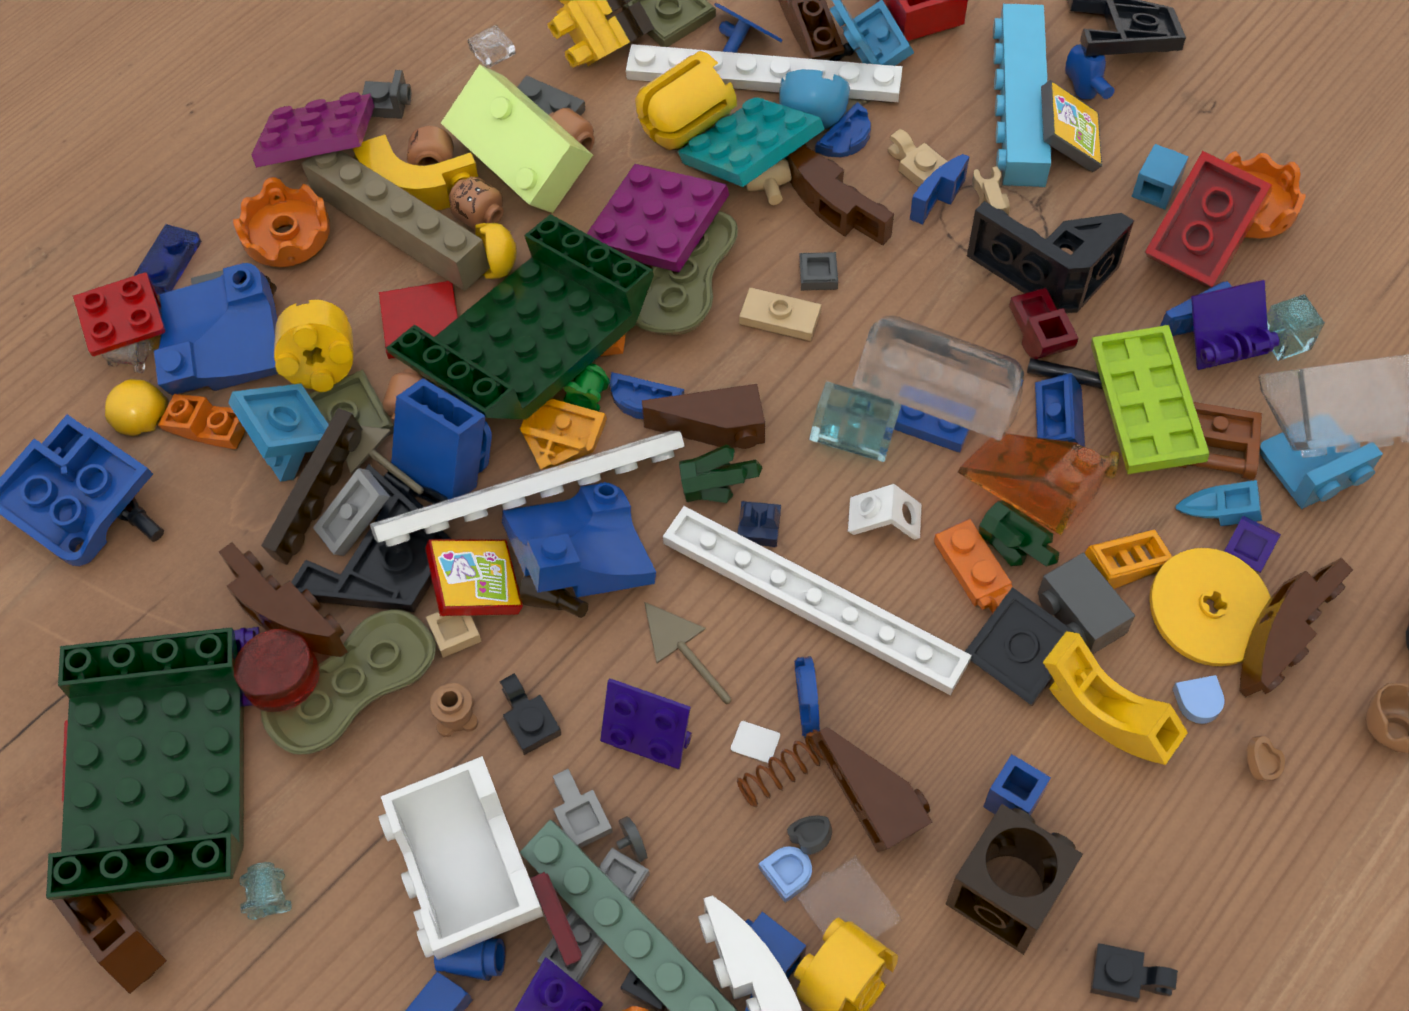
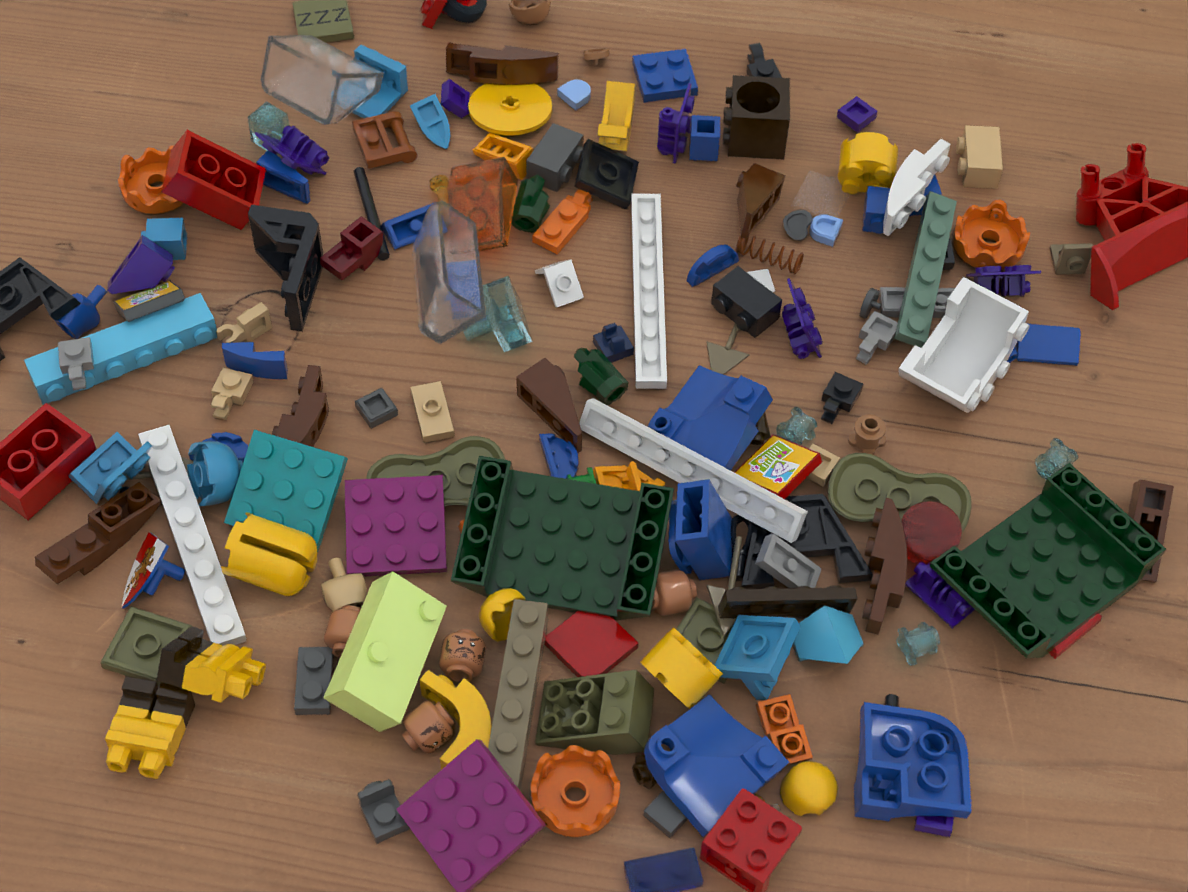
camera: 125 degrees left, 5 degrees down
(183, 587) = (918, 642): none -> clear light blue brick
(247, 511) = (828, 637): none -> medium azure slope
(341, 272) = (597, 713): none -> olive slope
(491, 46) = (270, 764): clear plate -> none
(511, 632) = (797, 427): none -> clear light blue brick
(556, 919) = (941, 302): dark red tile -> none
(616, 154) = (343, 588): none -> tan piece
(723, 688) = (746, 302): none -> black brick
(1014, 36) = (75, 359): none -> light grey plate
(1041, 749) = (673, 127): none -> dark purple hinge
(1122, 138) = (142, 268): none -> dark purple slope
(1149, 400) = (382, 171): lime plate -> none
(1183, 834) = (664, 75): none -> blue plate

